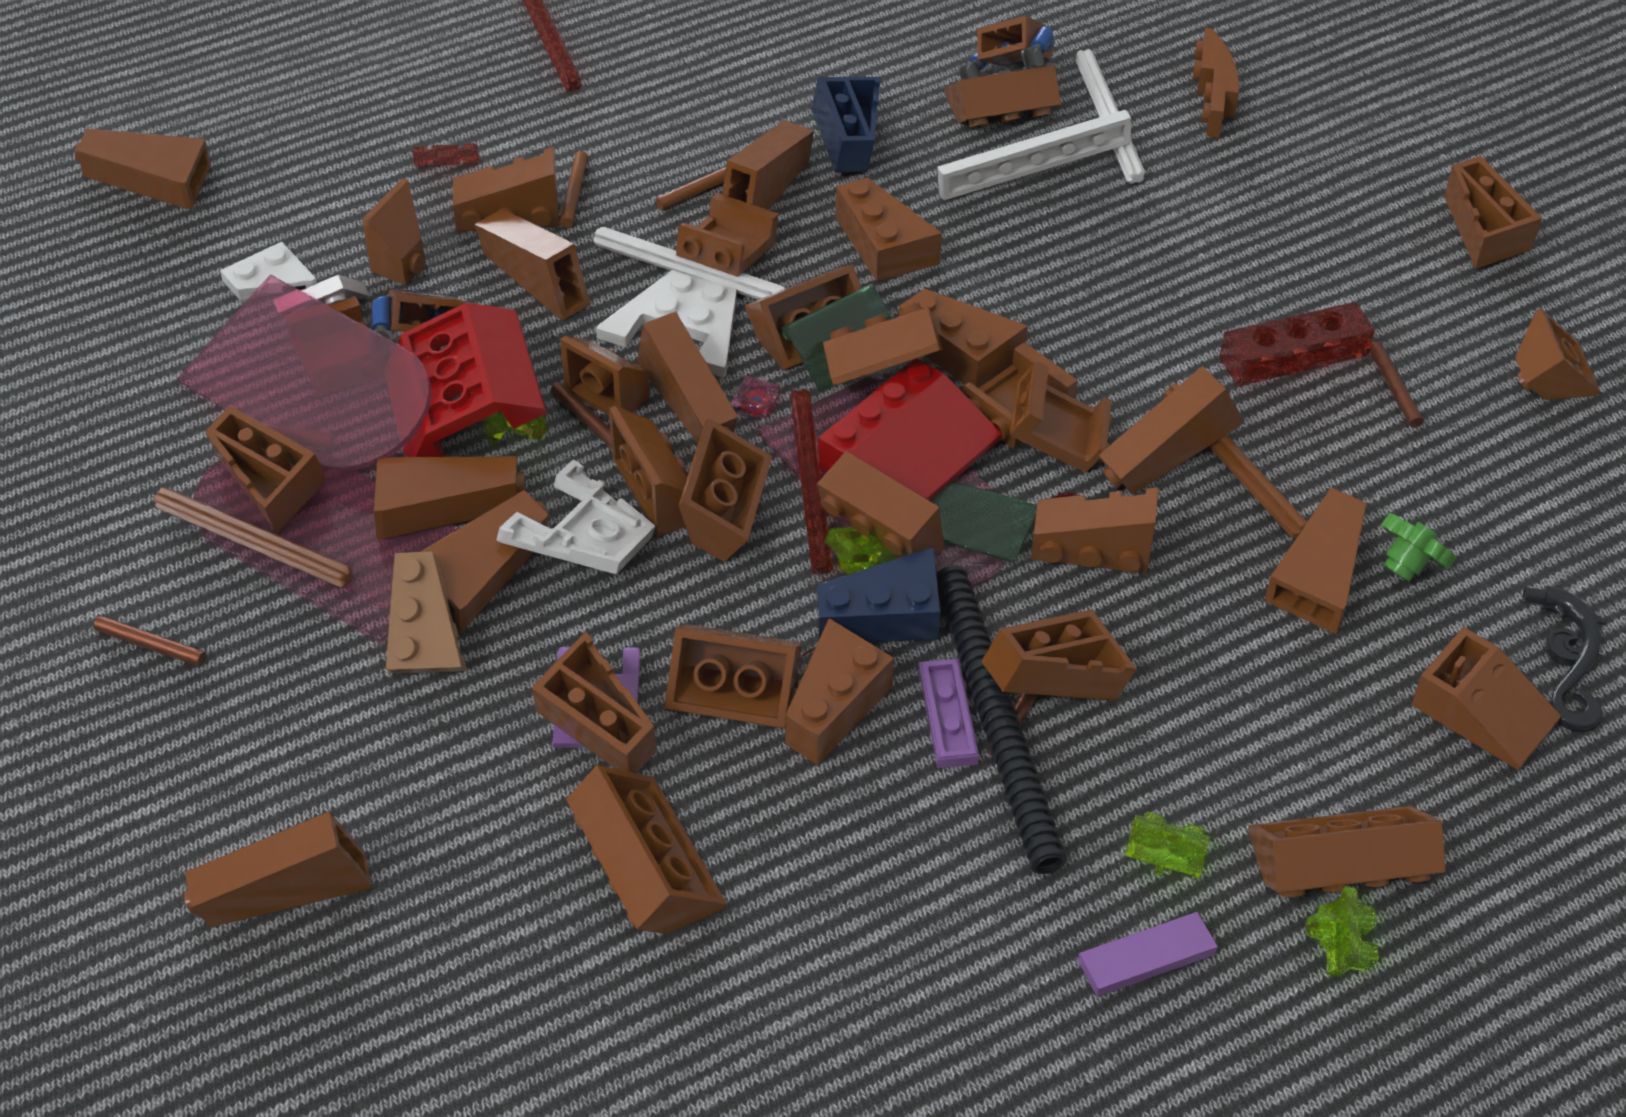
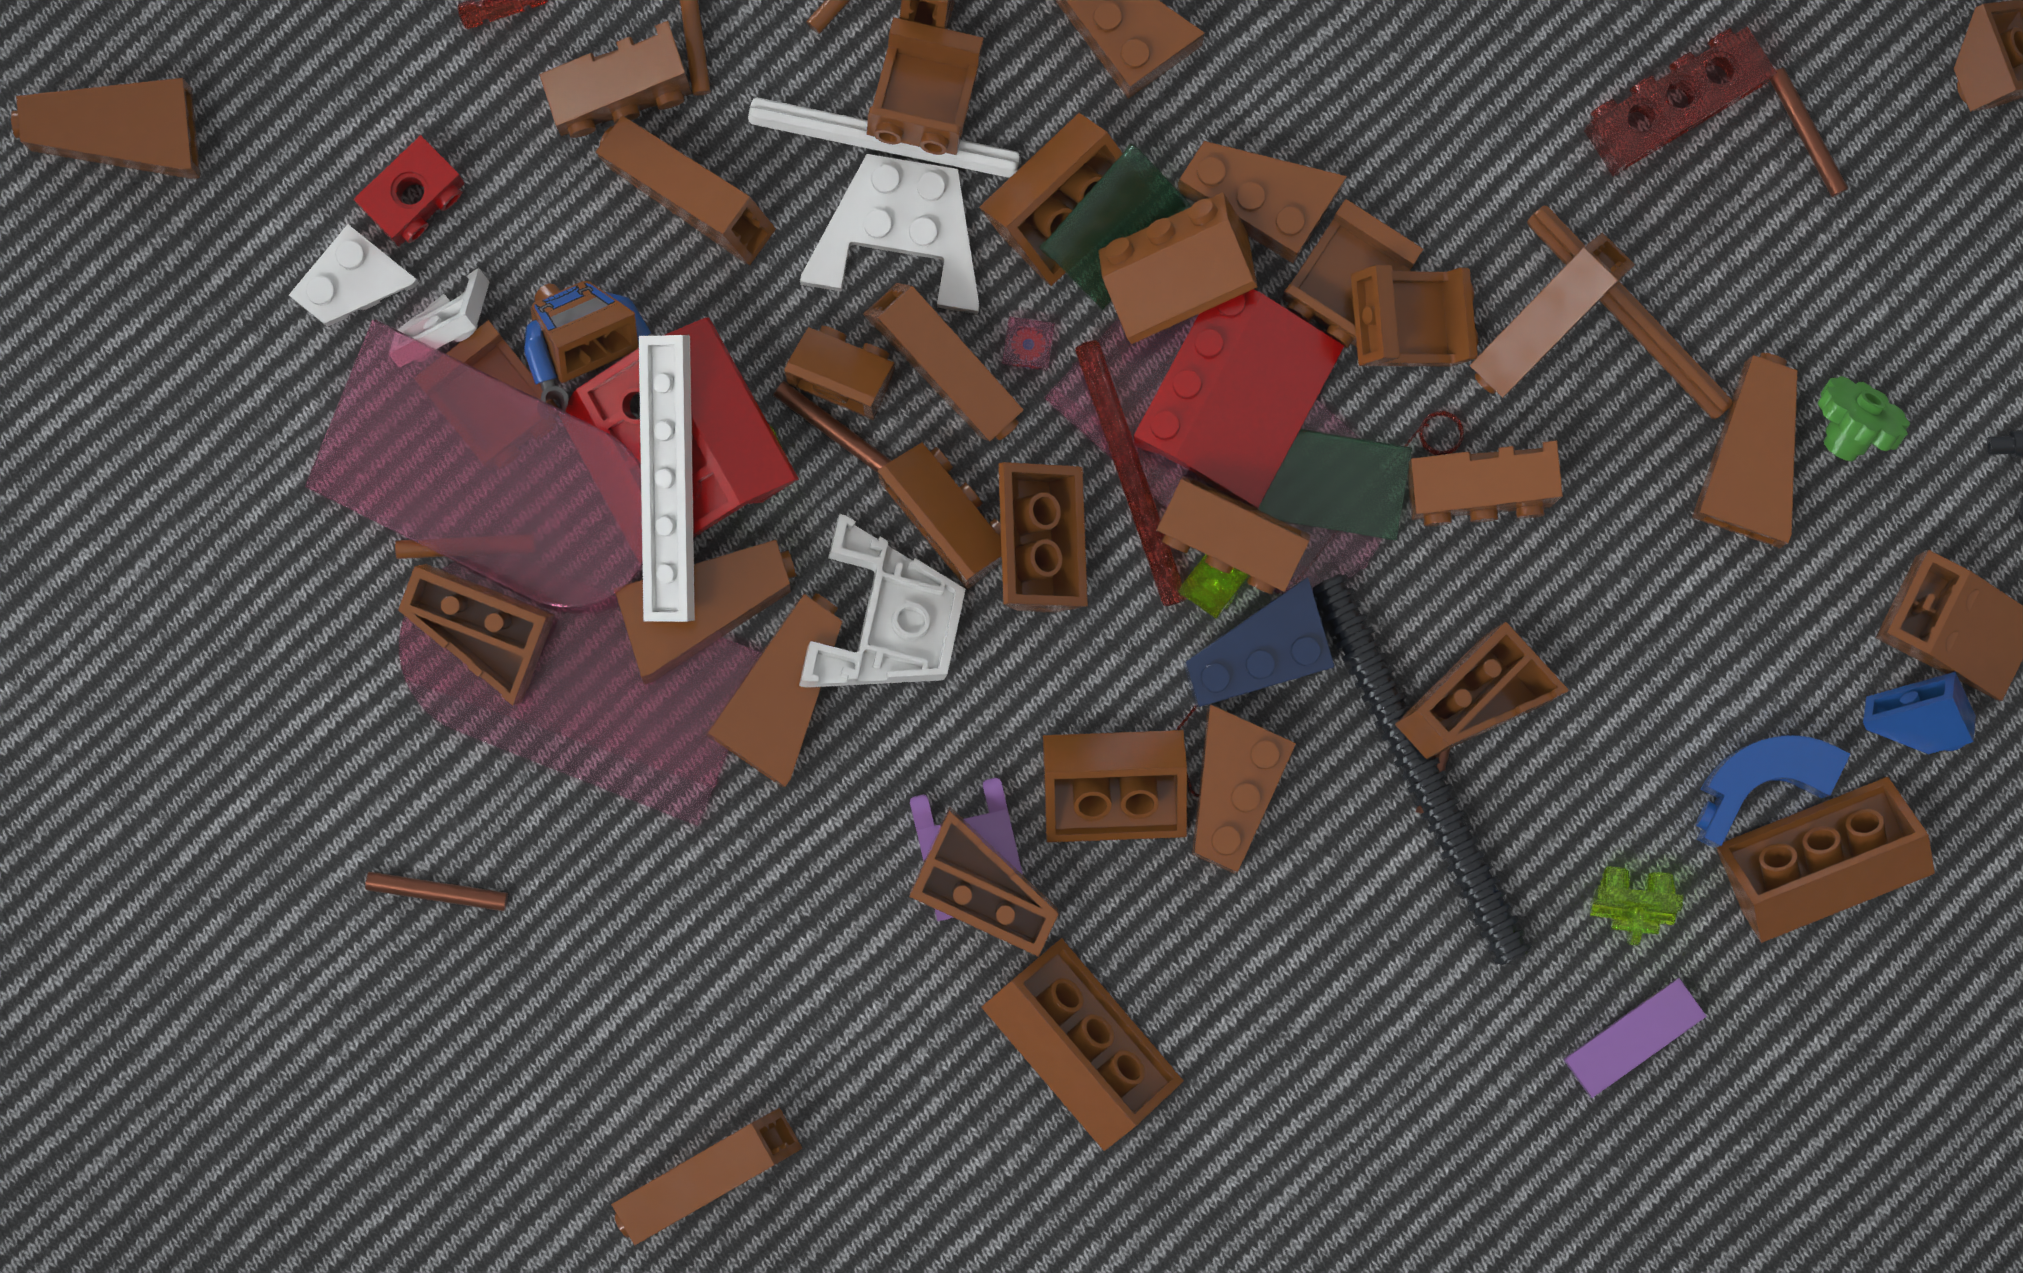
camera: 15 degrees left, 35 degrees up
(253, 537) = (499, 720): dark orange axle -> none
(330, 230) = (414, 166): none -> red brick
(394, 236) = (501, 199): dark orange slope -> none
(420, 619) = (742, 808): medium nougat wing -> none
(442, 380) = (666, 478): none -> white plate
(948, 713) = (1363, 772): medium lavender tile -> none
(1304, 766) = (1789, 759): none -> blue arch
(1339, 931) = (1832, 969): clear neon green hips -> none
(1451, 754) = (1923, 715): none -> blue slope

